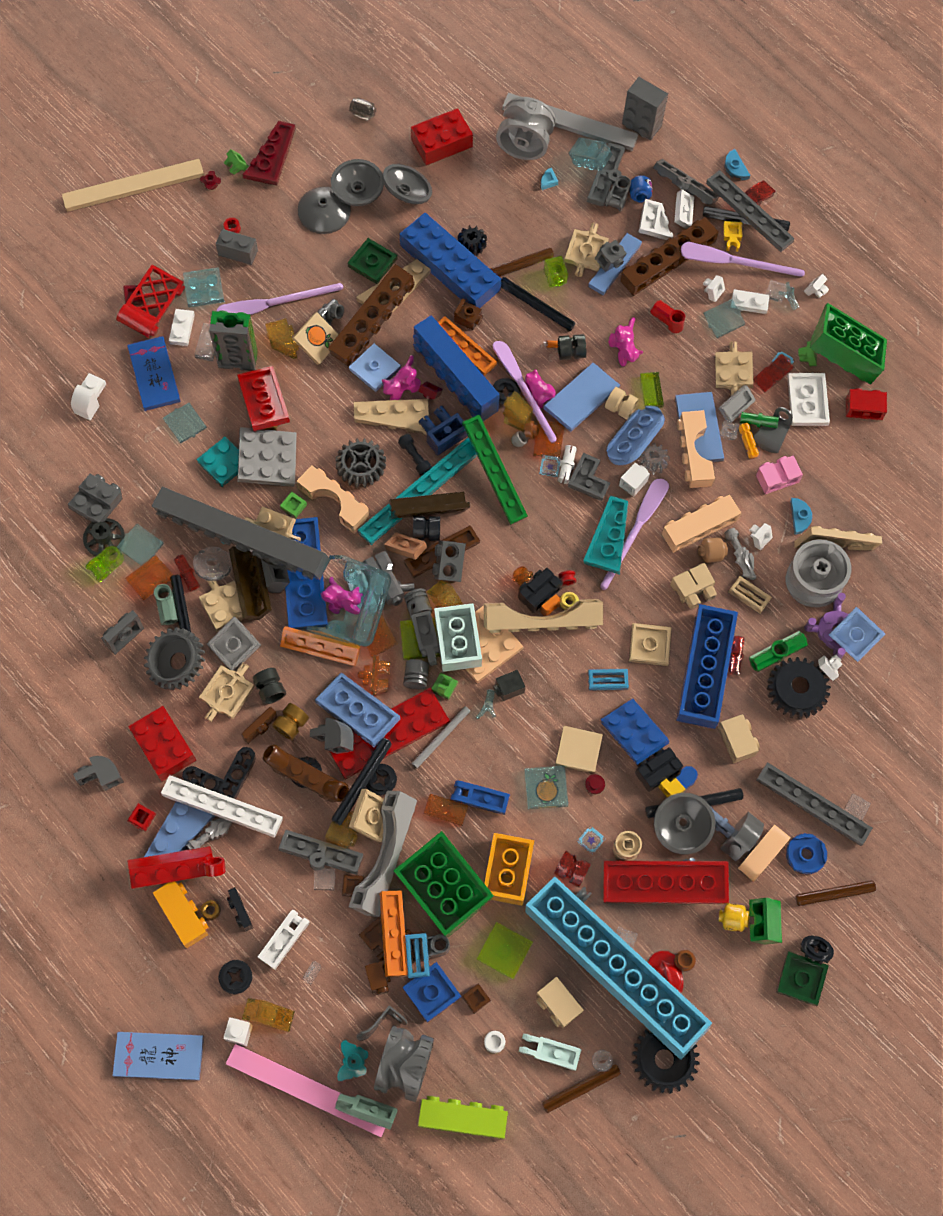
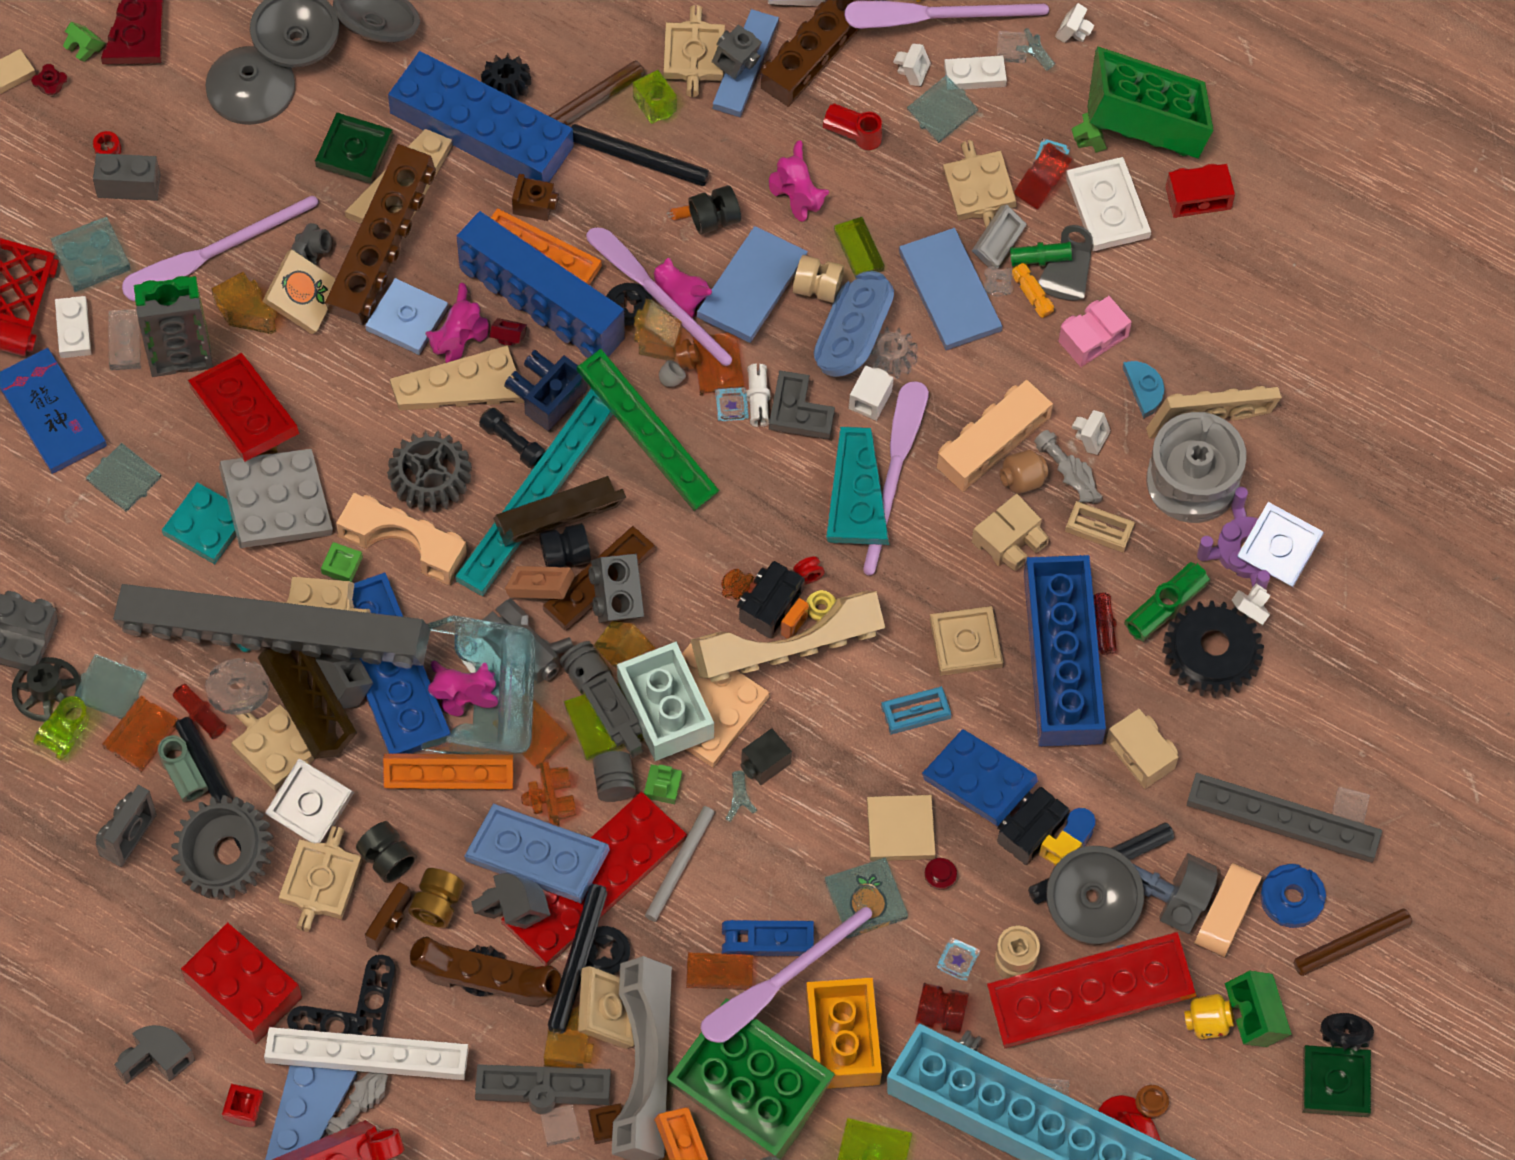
camera: 15 degrees left, 5 degrees down
(449, 840) = (743, 1008): none -> lavender piece
(699, 470) = (968, 353): light nougat arch -> none

